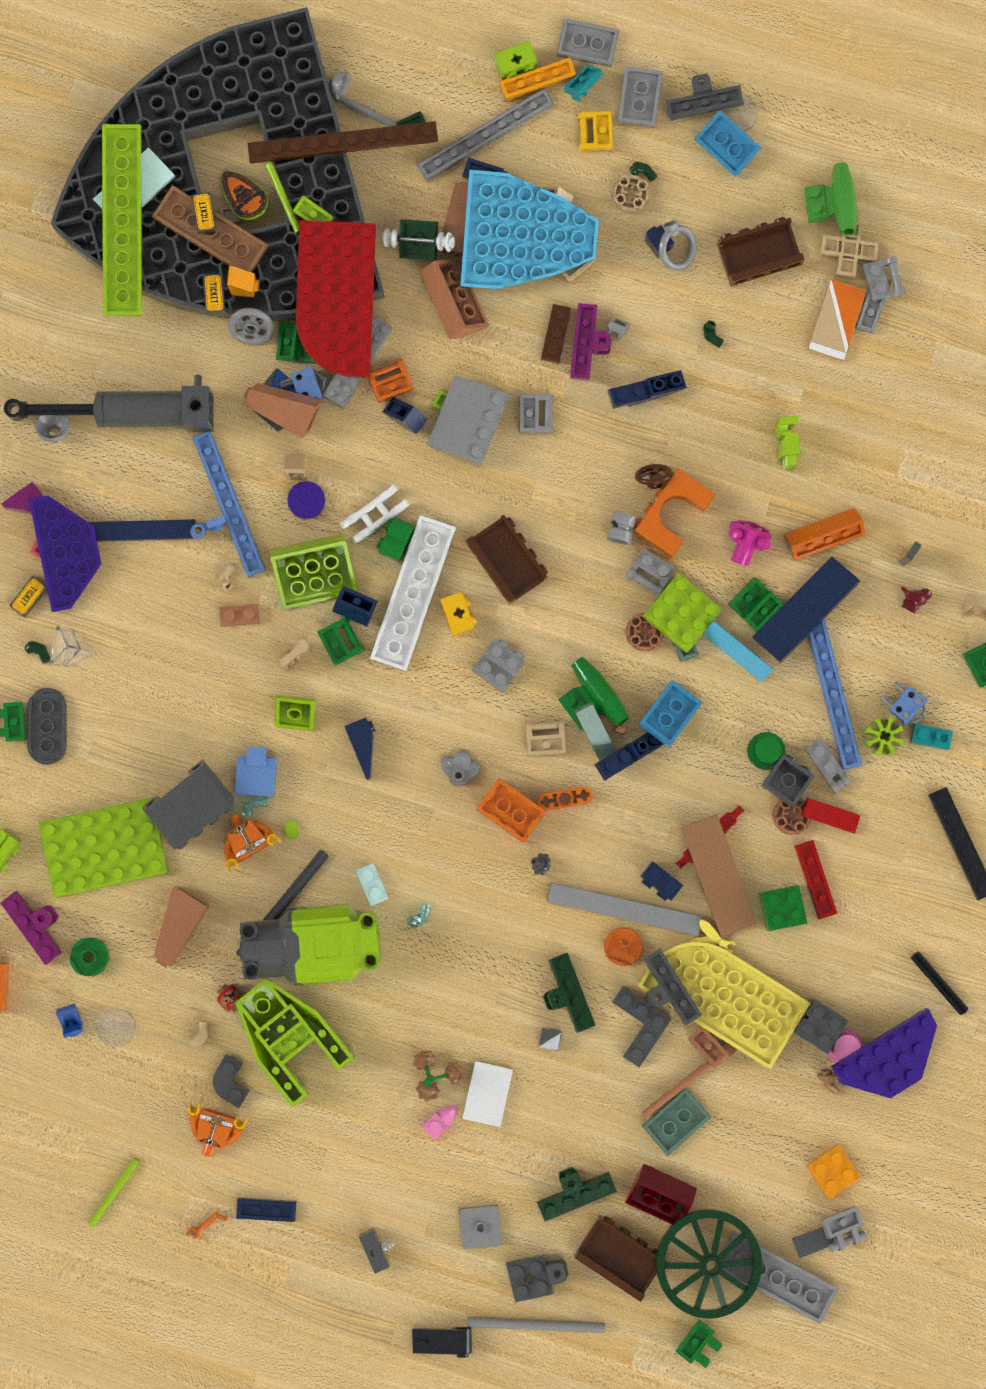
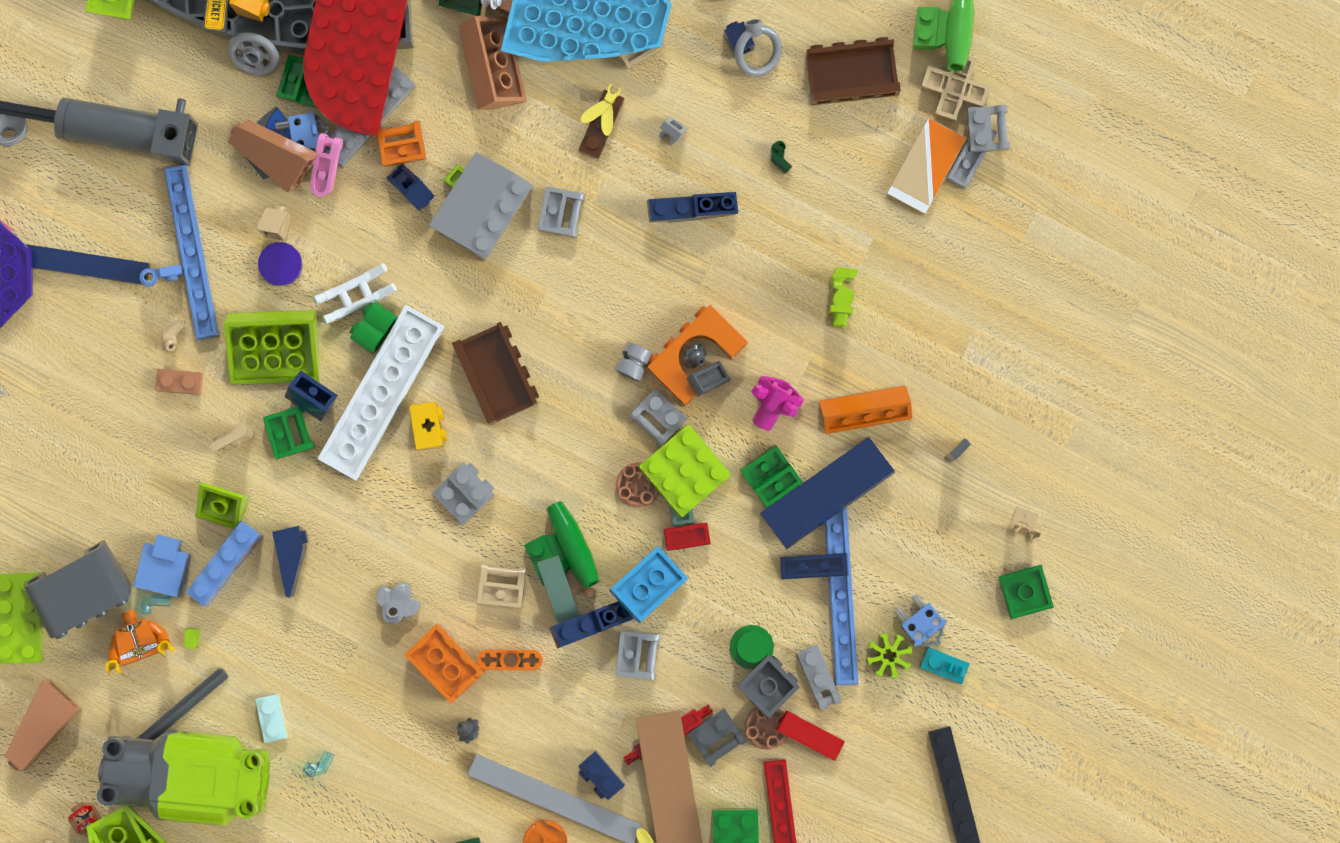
camera: 10 degrees right, 0 degrees up
(308, 761) = (224, 564): none -> medium blue brick
(329, 410) = (325, 165): none -> bright pink plate
(558, 320) = (602, 108): none -> light yellow piece
(587, 342) = (635, 140): magenta plate -> none
(653, 478) = (681, 312): reddish brown piece -> none
(666, 777) = (630, 652): none -> light grey plate
(672, 514) = (694, 356): none -> dark grey plant
(688, 531) = (708, 378): none -> dark grey tile
(694, 668) = (687, 536): none -> red plate
(737, 651) = (739, 527): medium azure slope -> none
(747, 827) = (712, 731): none -> dark grey plate
(806, 673) = (814, 566): none -> dark blue tile
(915, 598) = (955, 503): dark red animal -> none

